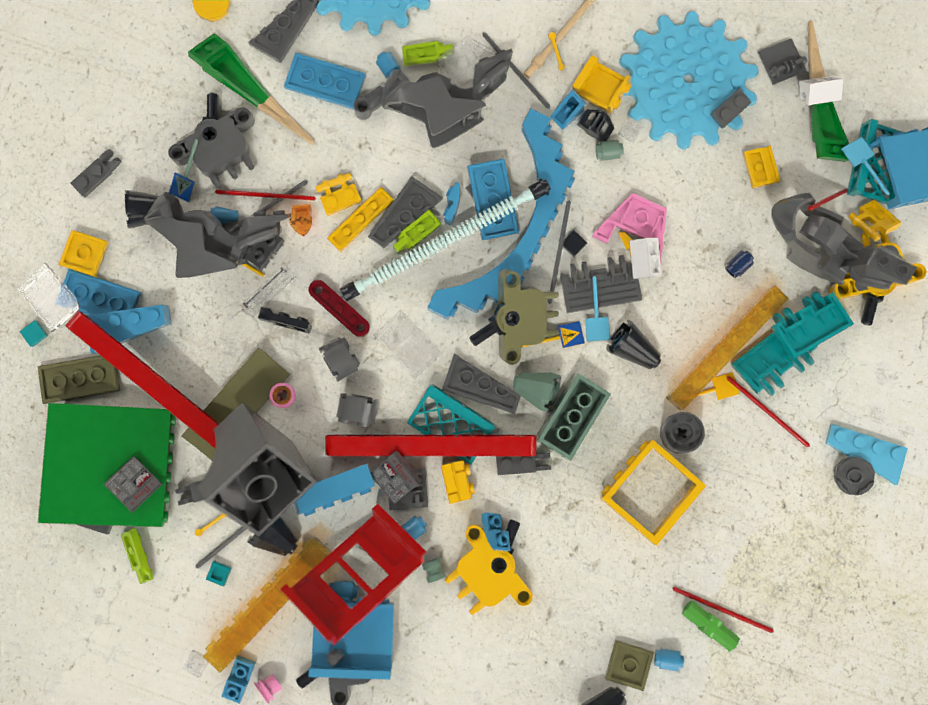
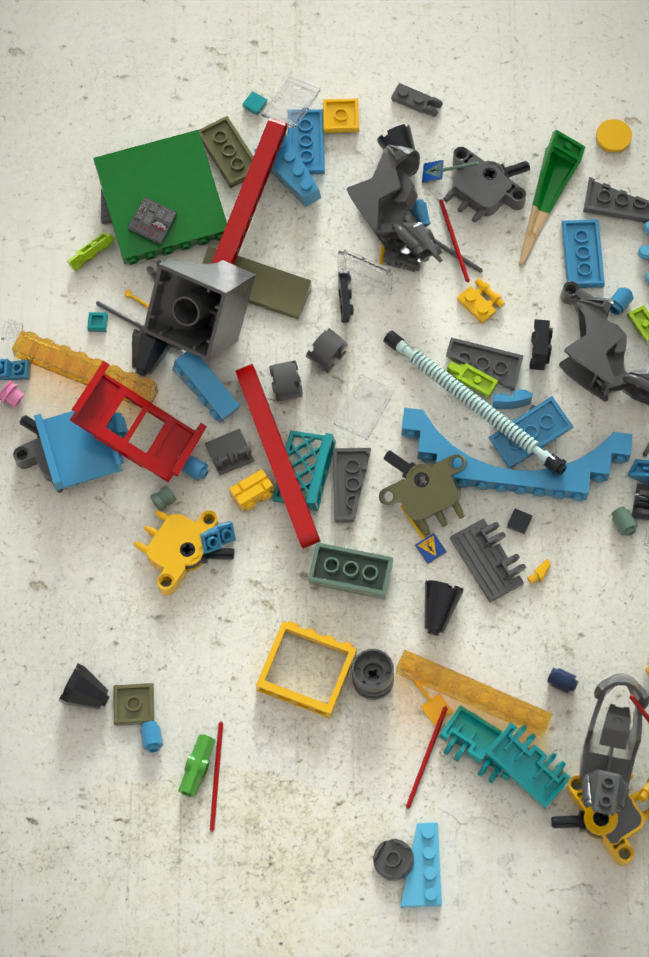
camera: 70 degrees right, 15 degrees down
(275, 395) = (270, 314): piece -> none
(301, 218) = (444, 276): clear orange tile -> none
(334, 657) = (57, 434): dark grey plate -> none
(339, 308) = (374, 337): dark red plate -> none
(360, 219) = (464, 327): yellow tile -> none
(395, 477) = (236, 433): dark grey tile -> none
(405, 153) = (541, 341): none -> black brick
(520, 464) = (289, 543): dark grey hinge -> none
(538, 388) = (366, 532): sand green cone -> none
(559, 250) = (508, 508): dark grey axle -> none
(597, 327) = (446, 568): medium azure piece -> none
(636, 217) = (568, 573): bright pink wing -> none
(645, 258) = (531, 587): white hinge -> none

